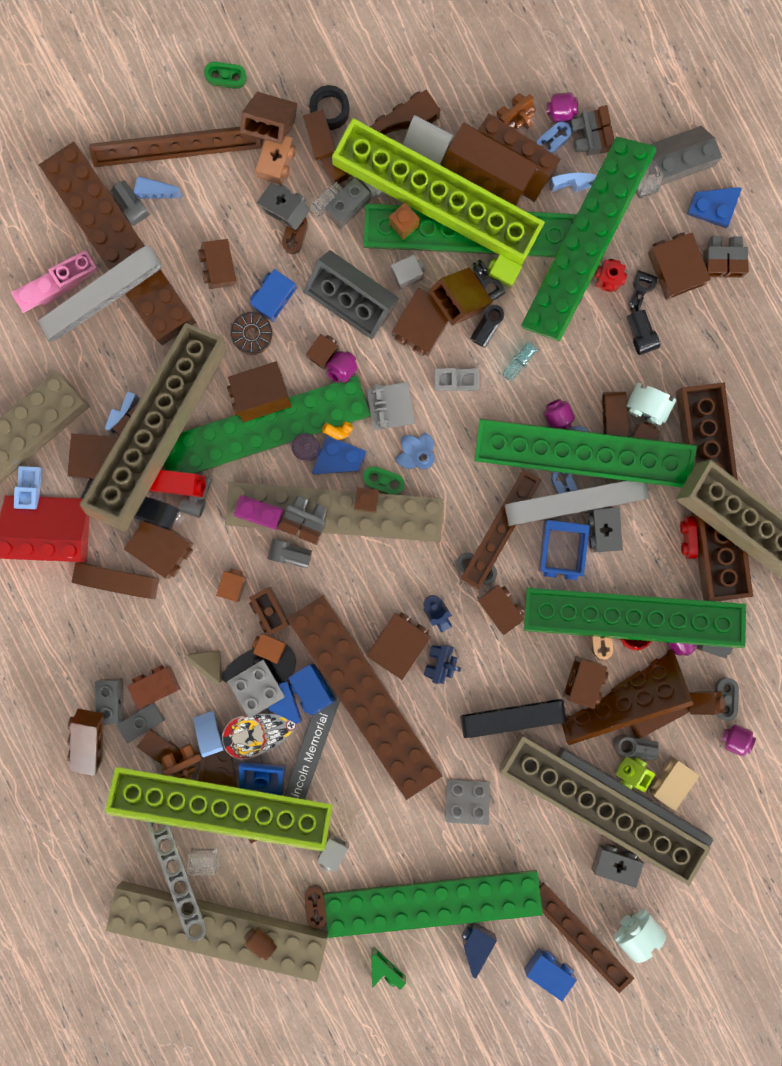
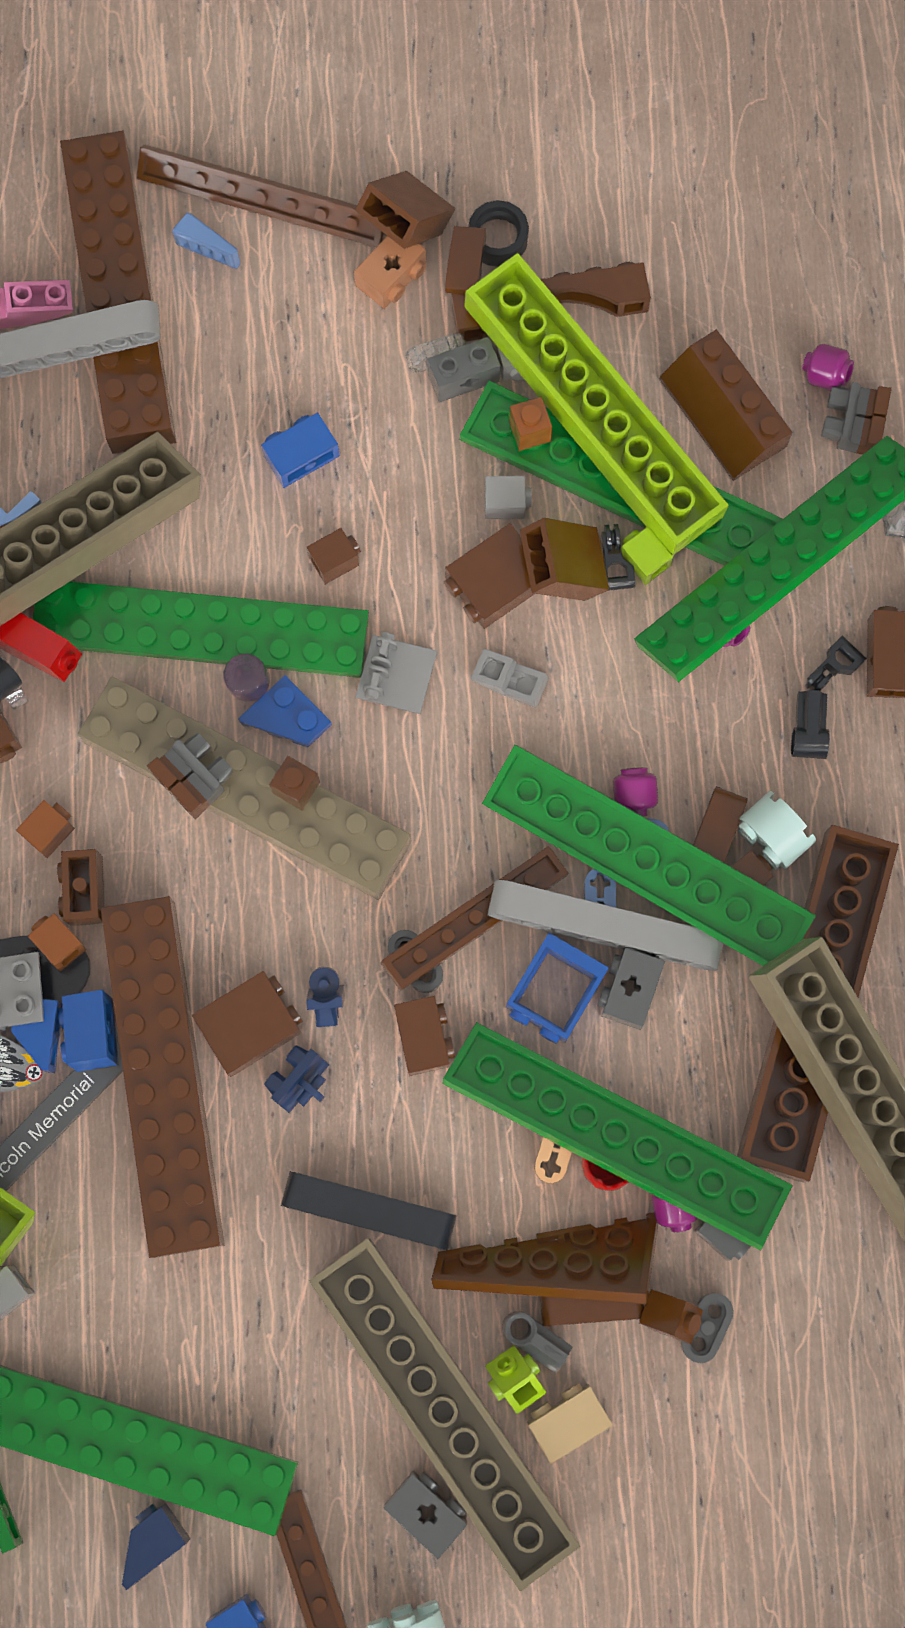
camera: 20 degrees right, 10 degrees down
(132, 206) = (161, 250): dark grey piece -> none
(195, 505) = (50, 691): dark grey piece -> none
(218, 264) = (242, 374): reddish brown brick -> none
(226, 74) = (376, 133): green plate -> none
(245, 322) = (246, 471): tile -> none
(258, 392) = (215, 571): reddish brown brick -> none
(258, 512) = (131, 732): magenta brick -> none
(283, 205) = (372, 334): dark grey brick -> none
(285, 552) = (145, 814): dark grey piece -> none
(299, 237) = (366, 375): reddish brown beam -> none
(338, 432) = (304, 678): light orange arm -> none
(341, 366) = (350, 588): magenta head -> none
(350, 294) = (410, 494): dark grey slope -> none
(384, 479) = (338, 774): green plate -> none
(414, 449) = (404, 750): medium blue plate -> none
(427, 140) = (615, 331): light grey slope -> none
(467, 802) = (241, 1308): light grey hinge -> none
(487, 327) = (585, 622): black piece -> none
(489, 164) = (687, 398): reddish brown slope -> none
(520, 114) = (762, 350): dark orange hips -> none
(520, 361) = (612, 691): clear light blue axle -> none
(550, 136) = (795, 398): medium blue beam -> none
(578, 181) = (808, 475): light blue slope -> none
(585, 682) = (500, 1199): reddish brown brick -> none
(606, 280) = (795, 635): red brick -> none
(635, 796) = (502, 1418): dark grey tile -> none
(688, 528) = (748, 1068): red plate -> none
(738, 740) = (698, 1400): magenta head -> none

